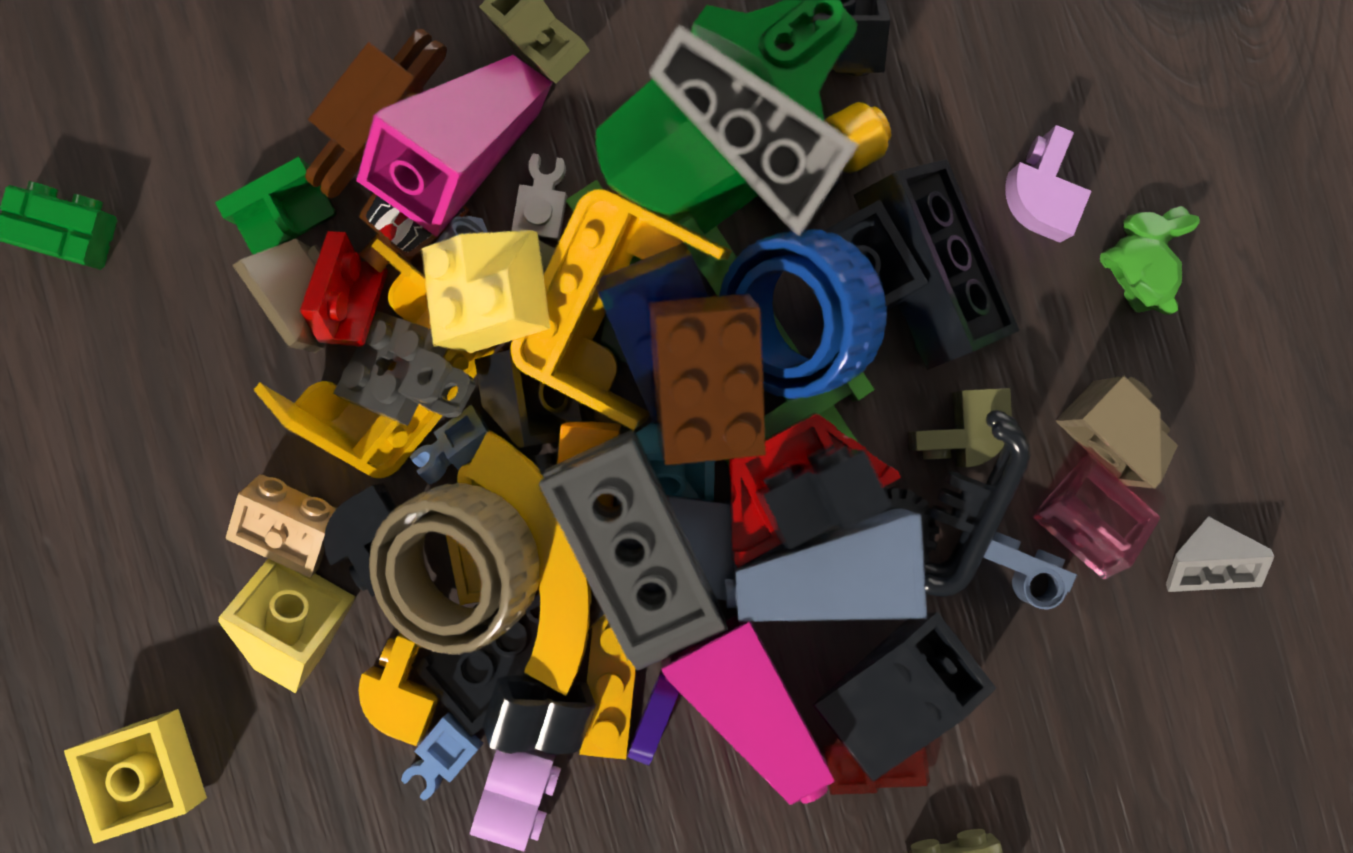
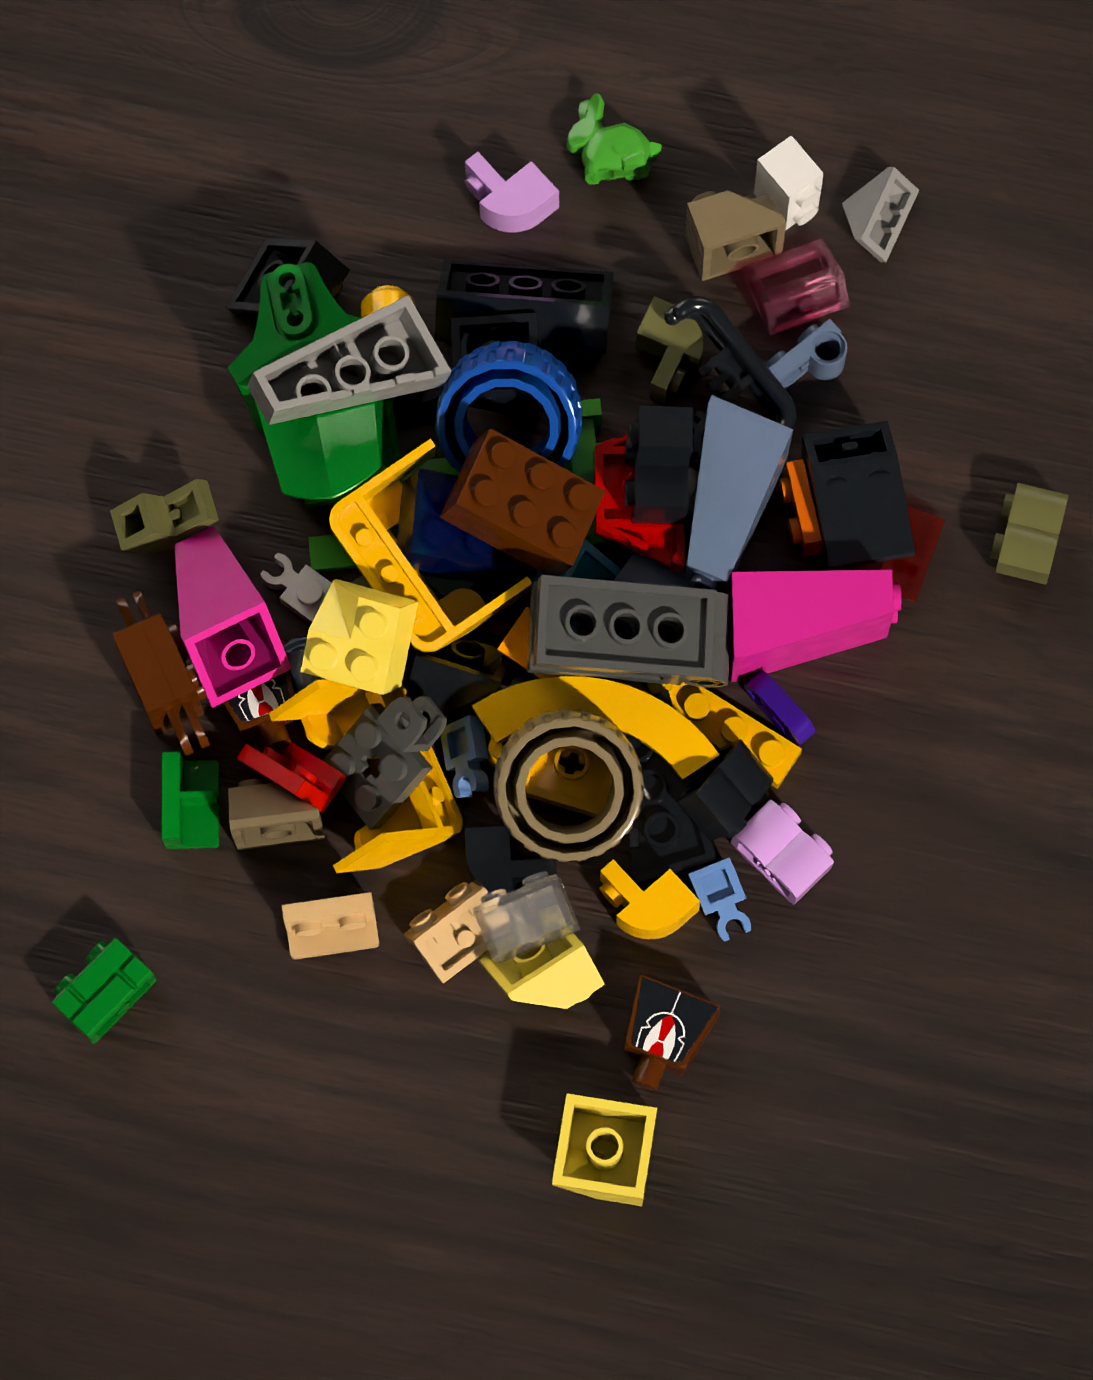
camera: 60 degrees left, 15 degrees down
(223, 405) = (331, 925): none -> tan bracket
(286, 771) = (666, 1030): none -> torso
(305, 593) = (525, 918): none -> clear brick
(851, 652) = (804, 525): none -> orange plate
(1205, 462) = (790, 181): none -> white brick

